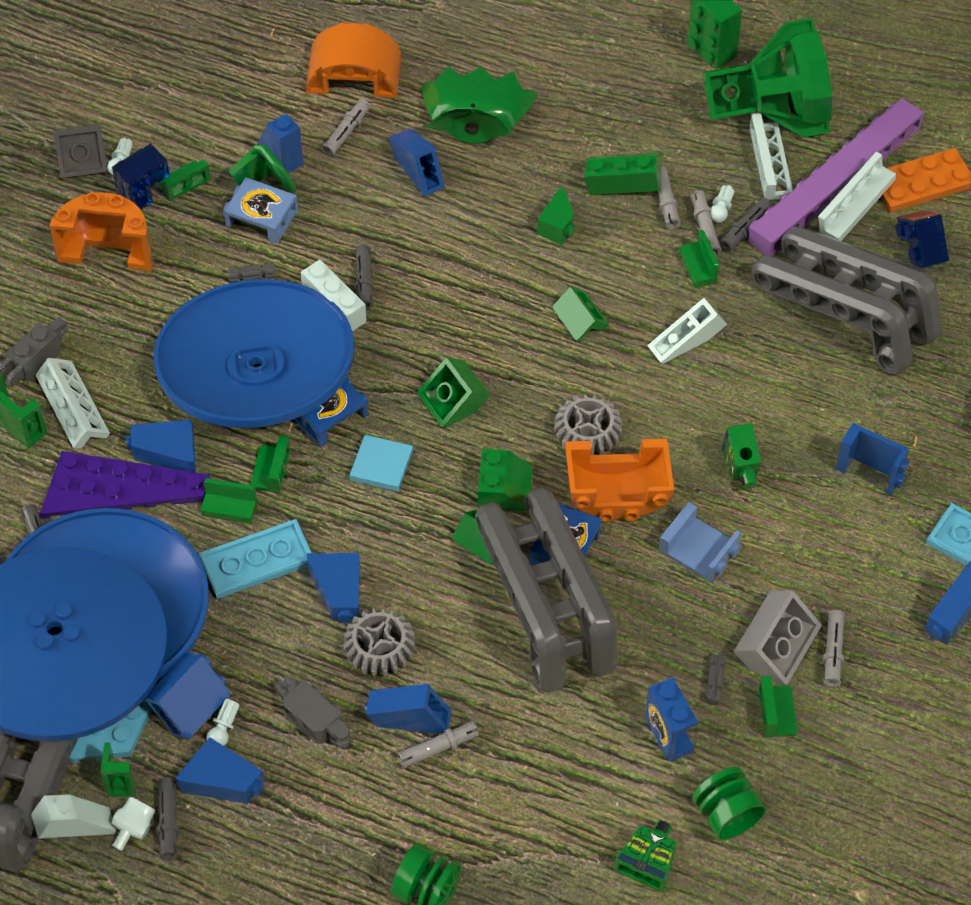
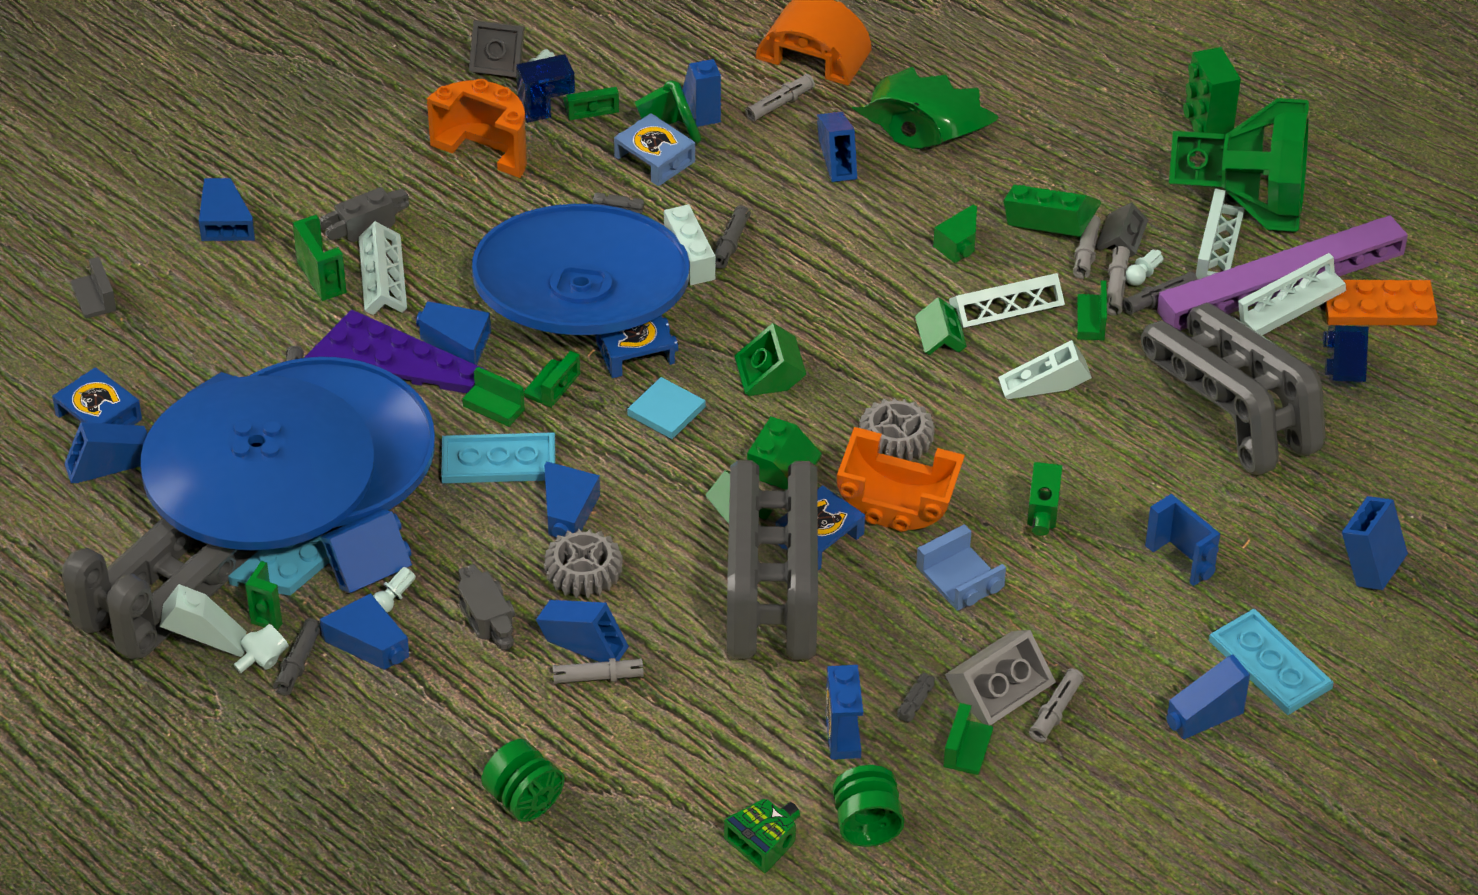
camera: 20 degrees right, 10 degrees down
(618, 262) = (1004, 291): none -> light aqua fence
(688, 172) = (1123, 228): none -> dark grey panel

